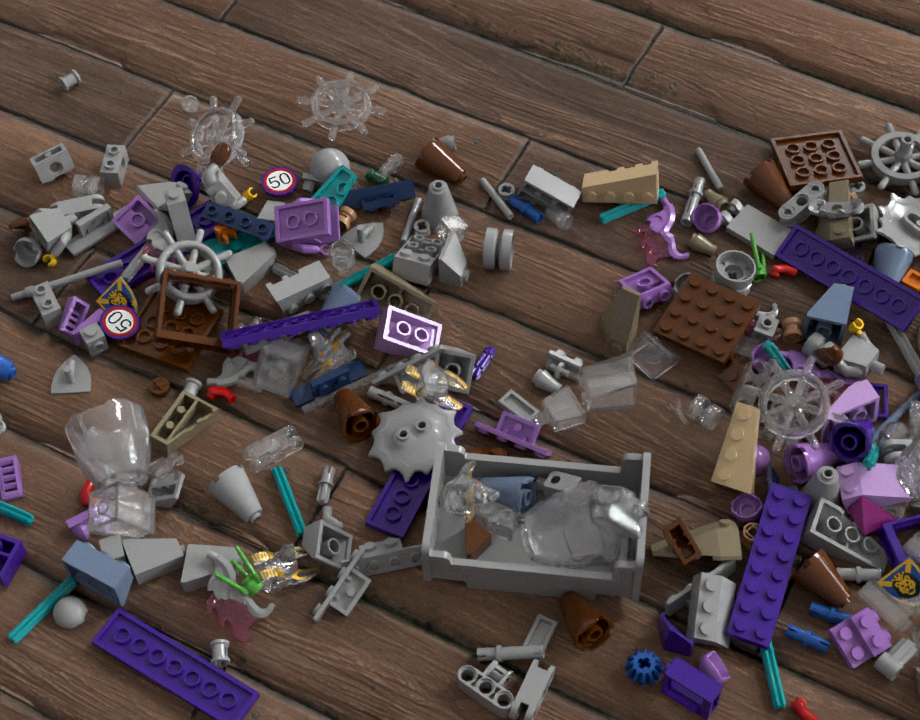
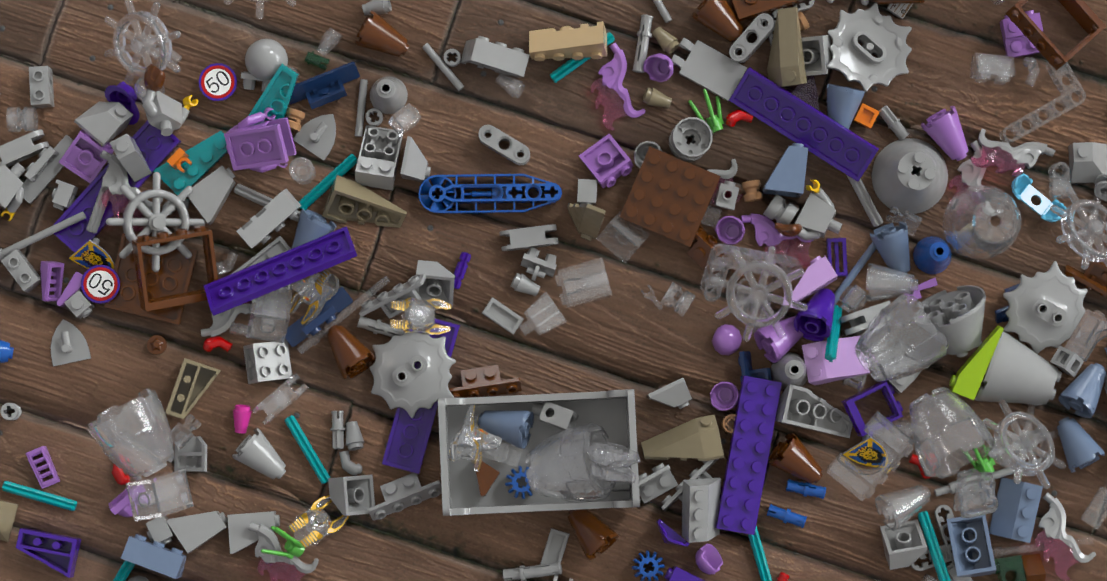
camera: 15 degrees left, 30 degrees up
(107, 249) = (63, 195): none -> light grey brick
(192, 385) = (187, 346): light grey bush -> none
(228, 457) = (241, 418): none -> dark pink cone
(238, 221) = (190, 151): dark blue bracket -> none
(266, 412) = (267, 361): none -> light grey bracket
(267, 212) = (218, 123): light grey tile -> none
(341, 496) = (354, 438): none -> light grey cone
(347, 590) = (380, 535): light grey bracket -> none
(405, 333) = (384, 251): lavender slope -> none
(495, 248) = (455, 142): light grey wheel -> none
(506, 547) = (515, 484): none -> blue gear
(516, 430) = (503, 346): medium lavender bracket -> none
(522, 300) = (499, 193): none -> blue beam
(526, 209) = (475, 78): blue pin -> none
(545, 263) = (498, 136): none -> light grey piece
(557, 338) = (529, 237): none -> light grey piece
(661, 579) = (656, 483): none -> light grey bracket
(681, 541) = (670, 452): reddish brown slope -> none
(688, 495) = (672, 394): none -> light grey slope
(739, 451) = (712, 352): tan wedge -> none
(773, 352) = (740, 242): teal axle -> none
(823, 209) = (773, 49): light grey piece -> none
(859, 574) = (827, 446): light grey pin -> none
(860, 637) = (831, 510): medium lavender plate -> none
(868, 515) = (834, 392): magenta slope -> none
(893, 662) = (859, 528): light grey piece -> none

